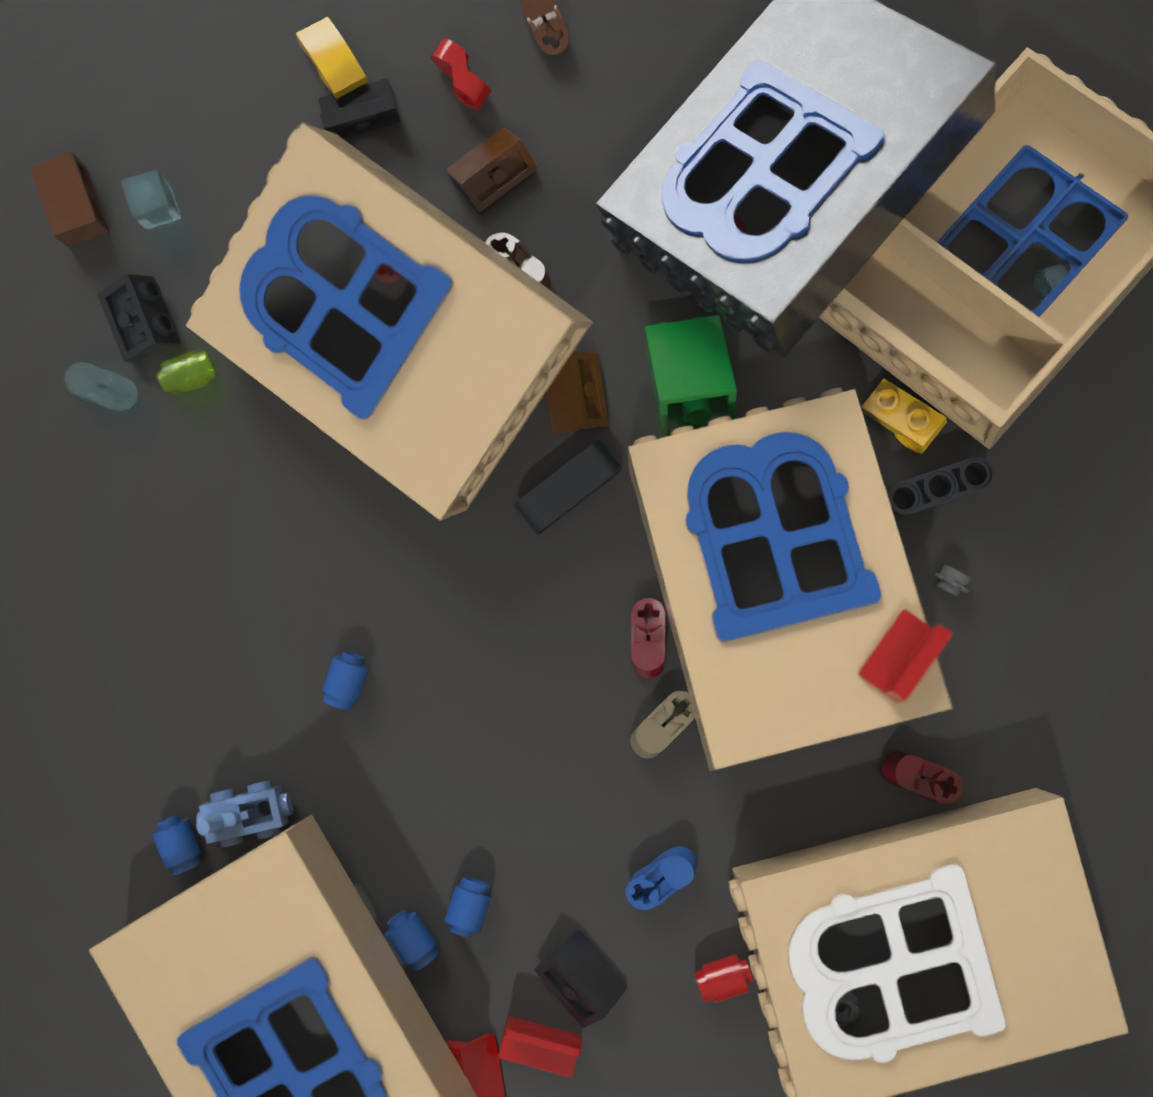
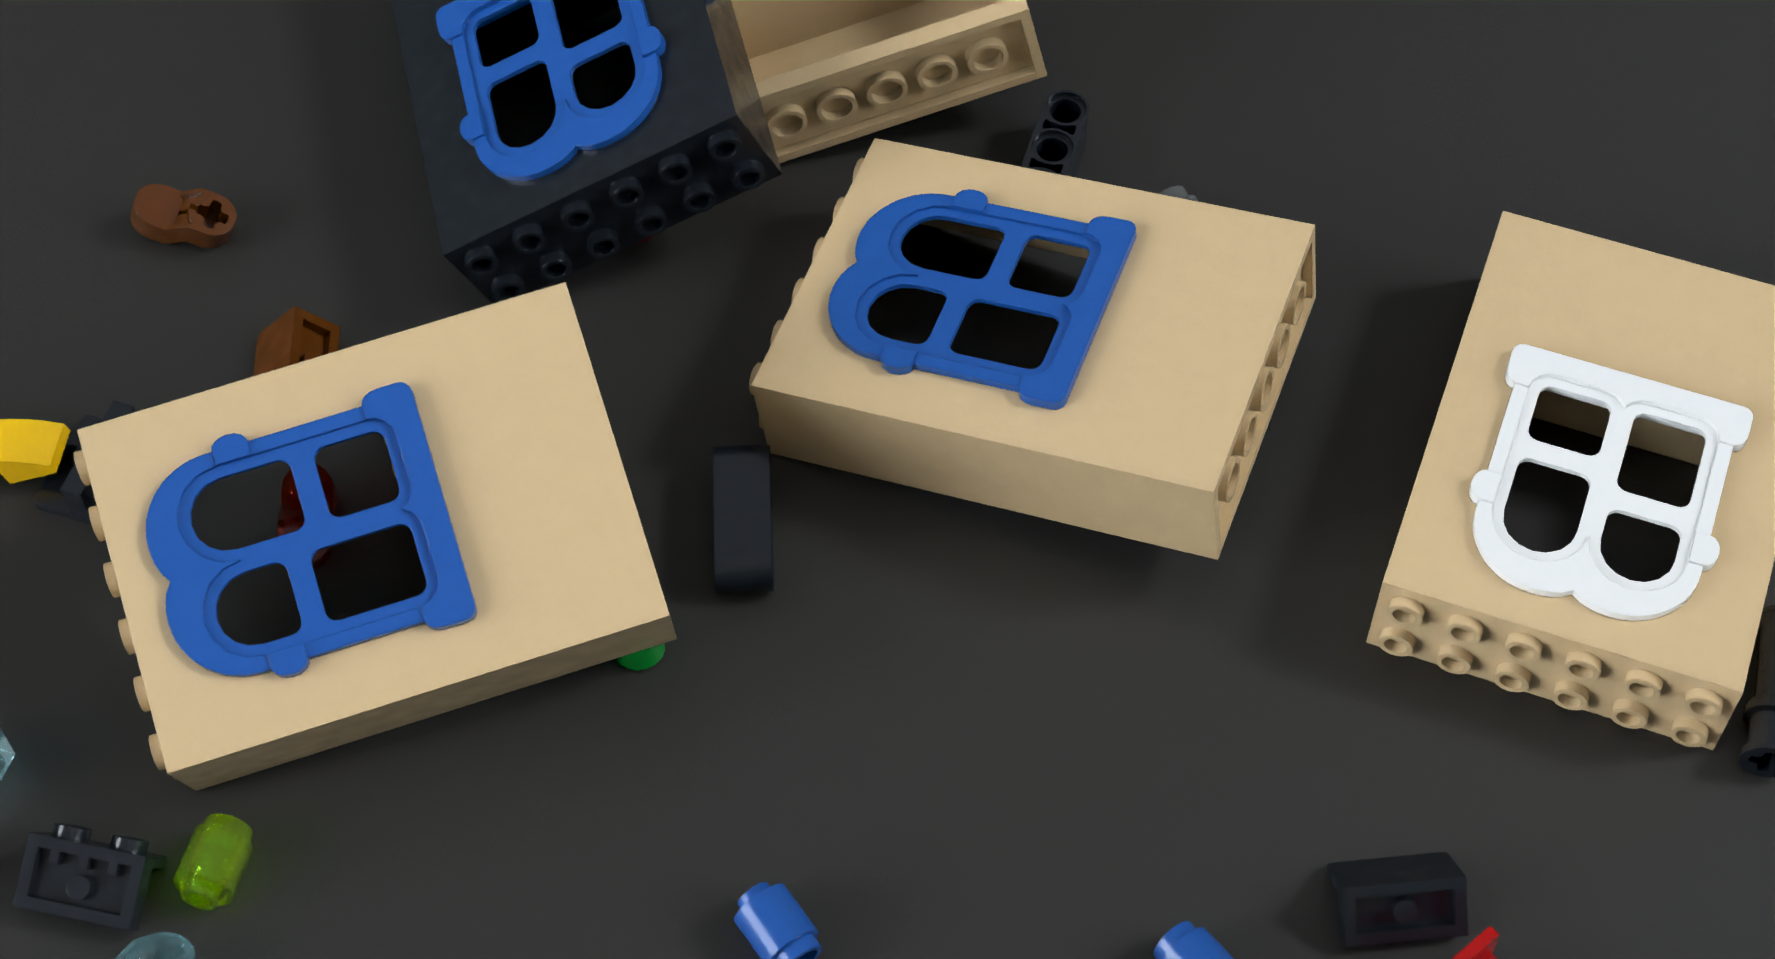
camera: 55 degrees left, 30 degrees down
(454, 62) = (142, 330): red piece -> none
(577, 395) = (651, 449): reddish brown panel -> none
(645, 887) = (1329, 738): blue piece -> none
(648, 619) = (1001, 546): dark red piece -> none
(650, 737) = (1126, 618): dark tan piece -> none
(689, 373) = (713, 307): green slope -> none
(723, 978) = (1506, 723): red brick -> none
(903, 656) = (1221, 231): red panel -> none
(904, 415) = (959, 131): yellow plate -> none
(938, 782) = (1389, 368): dark red piece -> none

